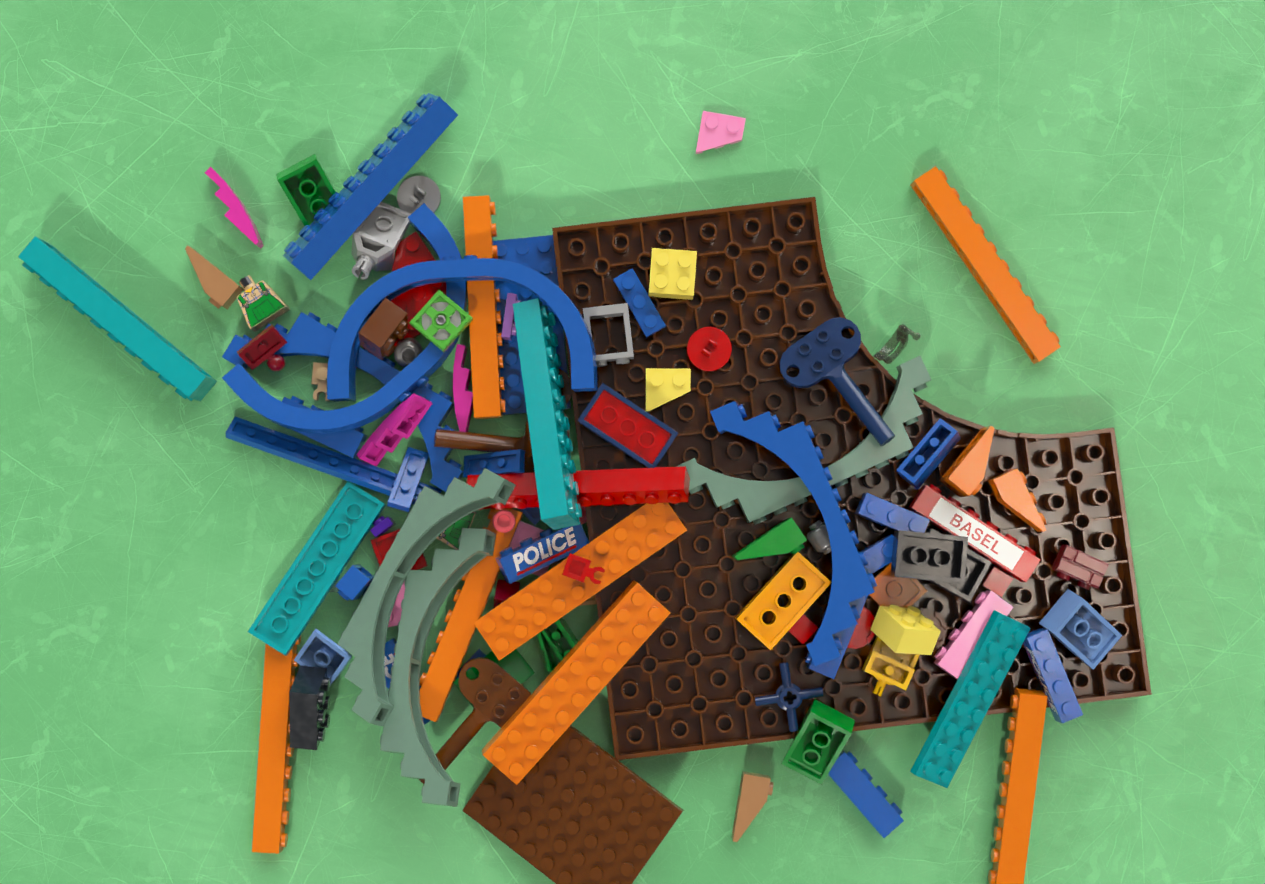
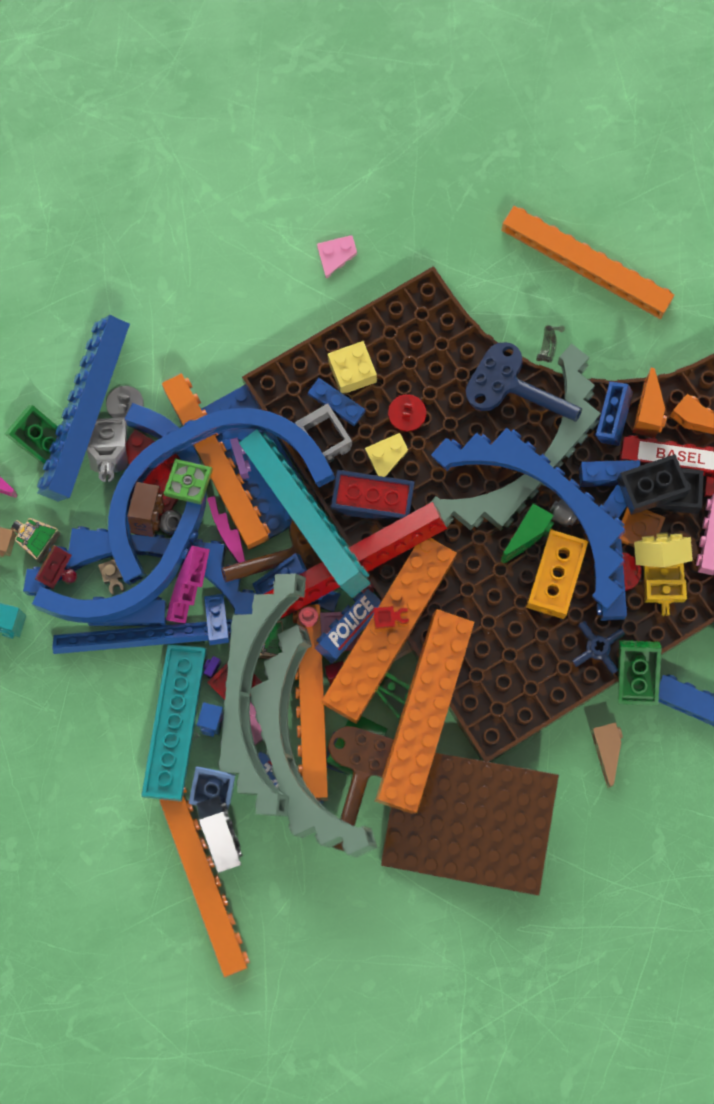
camera: 20 degrees left, 10 degrees down
(803, 629) = (583, 591): red tile -> none

